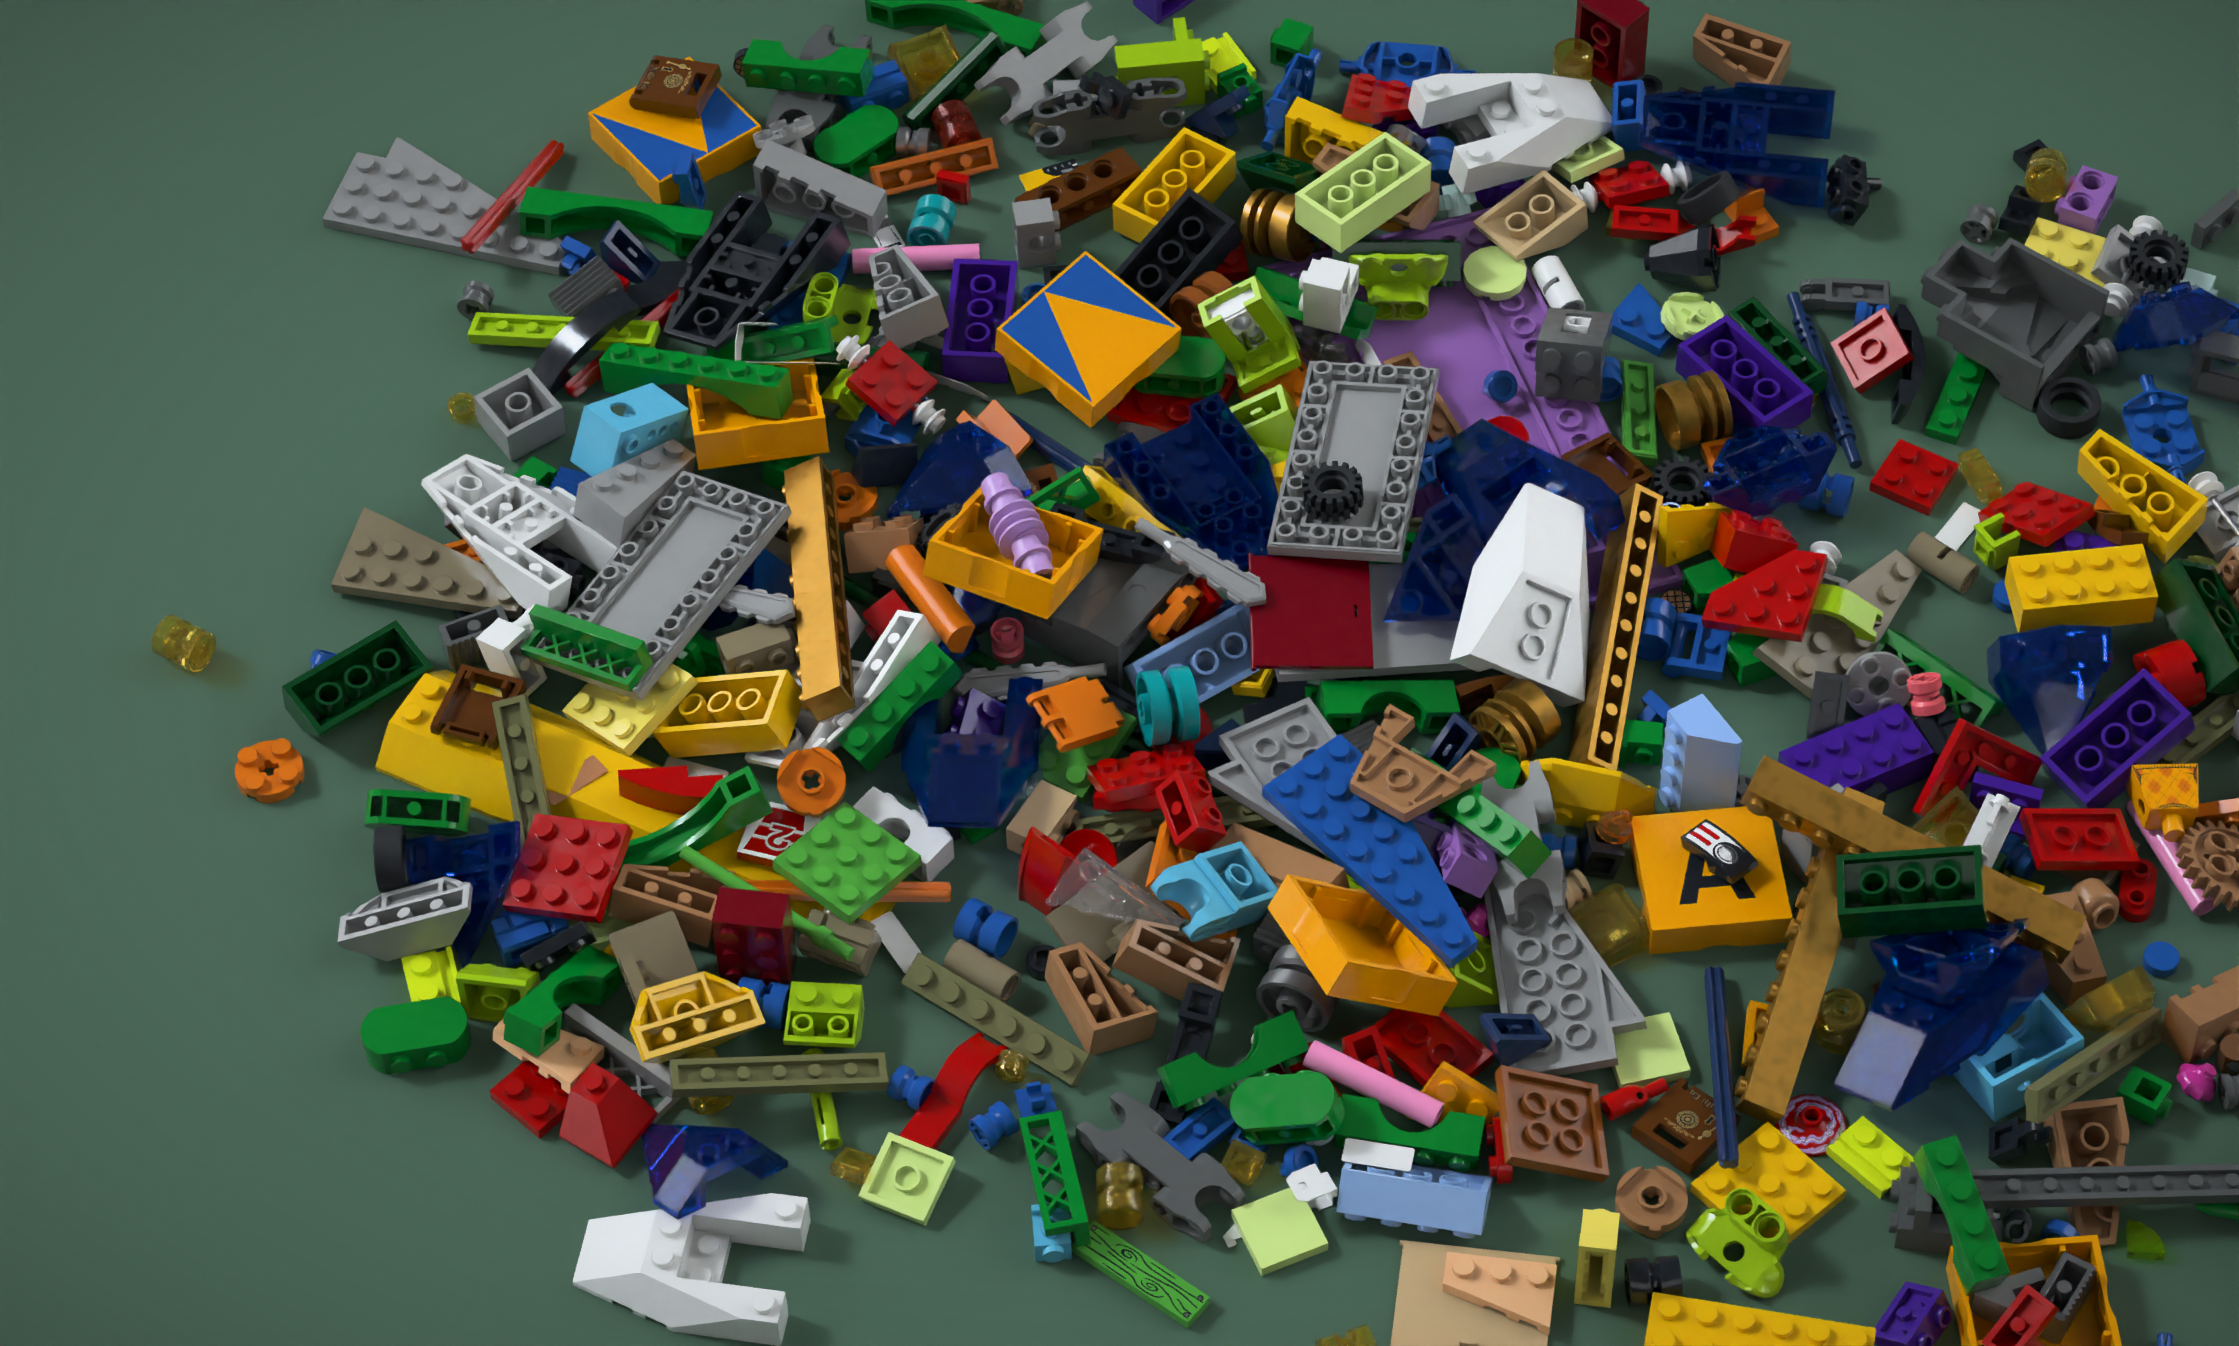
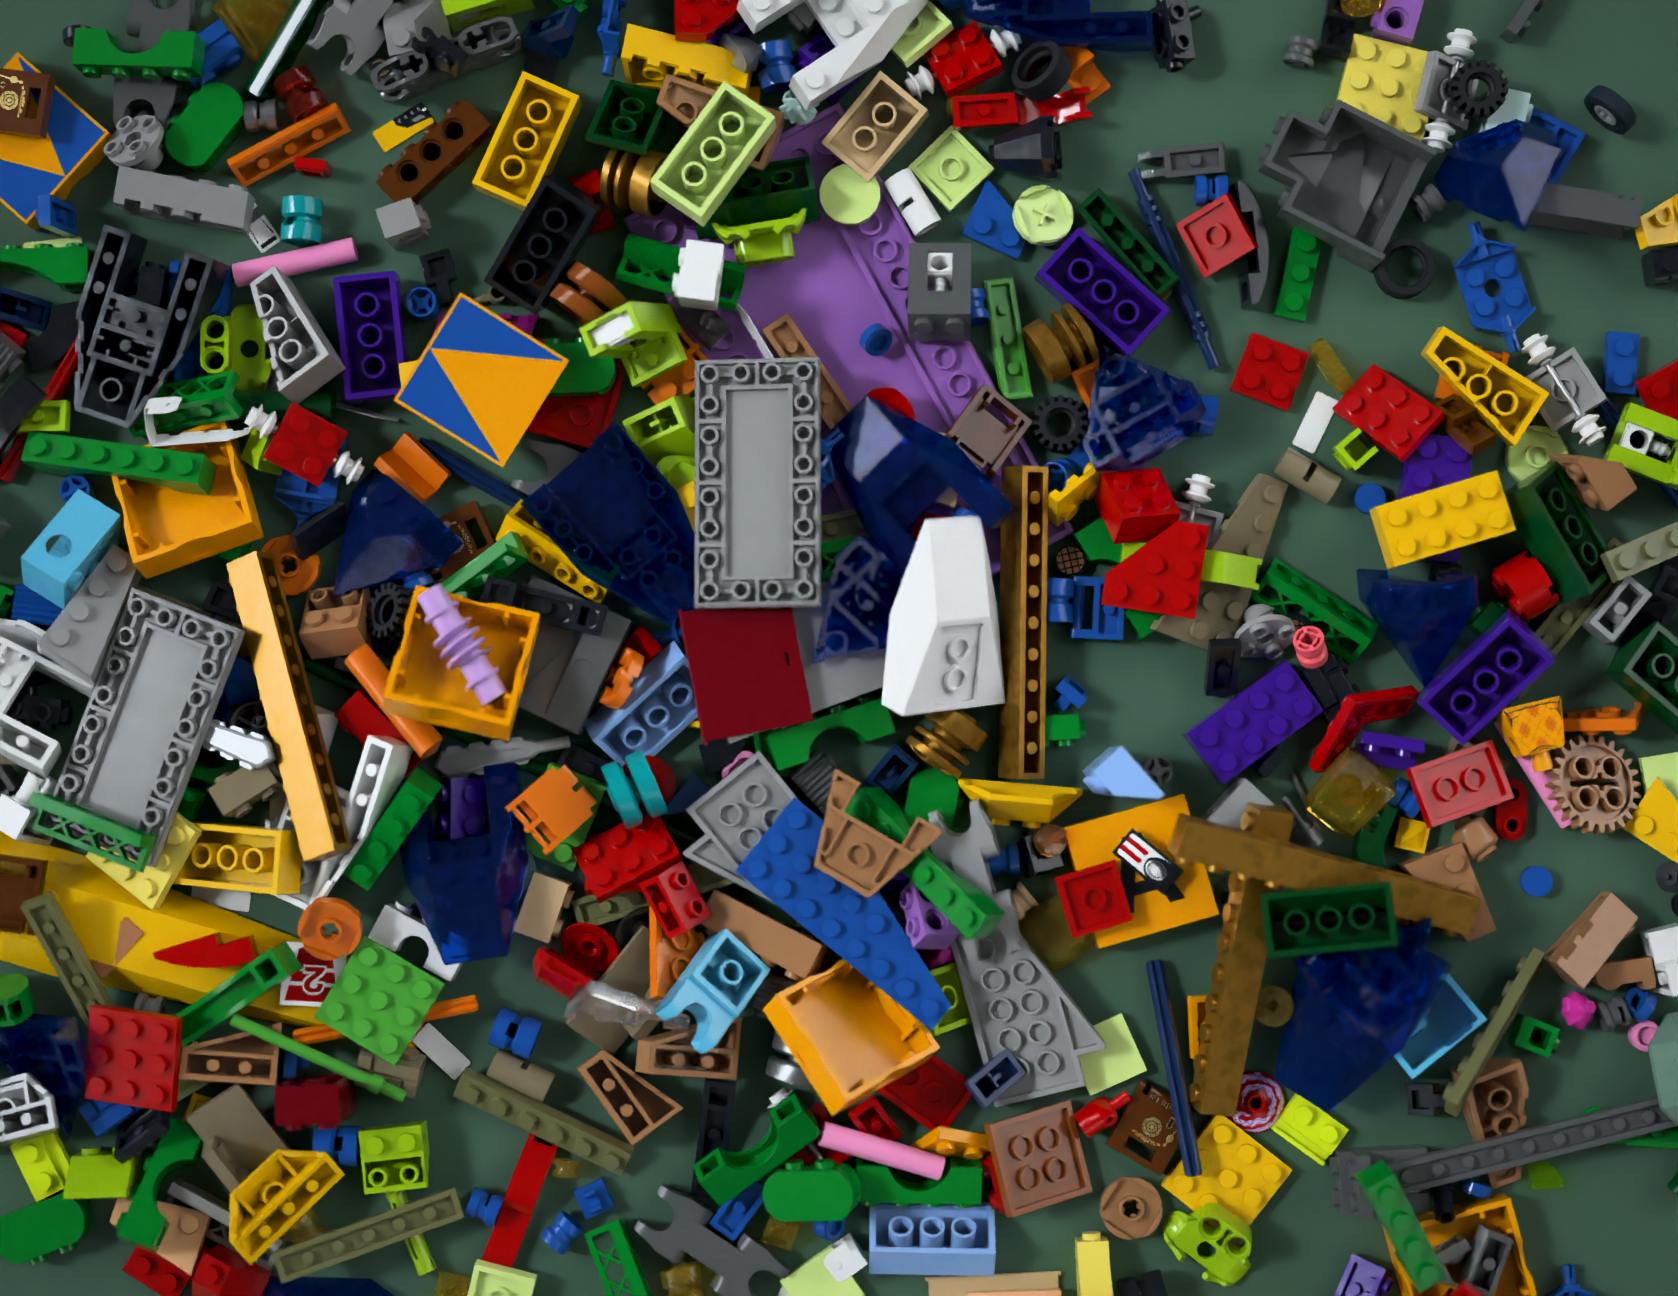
camera: 10 degrees left, 35 degrees up
(1037, 961) = (572, 1049): black tile -> none
(1220, 575) = (658, 647): light grey sword -> none
(1332, 504) = (750, 561): black tyre -> none
(1378, 1154) = (895, 1217): white sticker -> none
(1604, 273) = (951, 168): none -> yellowish green tile
(1652, 875) = (1093, 898): none -> red plate
(1992, 826) = (1381, 798): white hinge -> none
(2112, 1002) = (1502, 962): clear yellow slope -> none

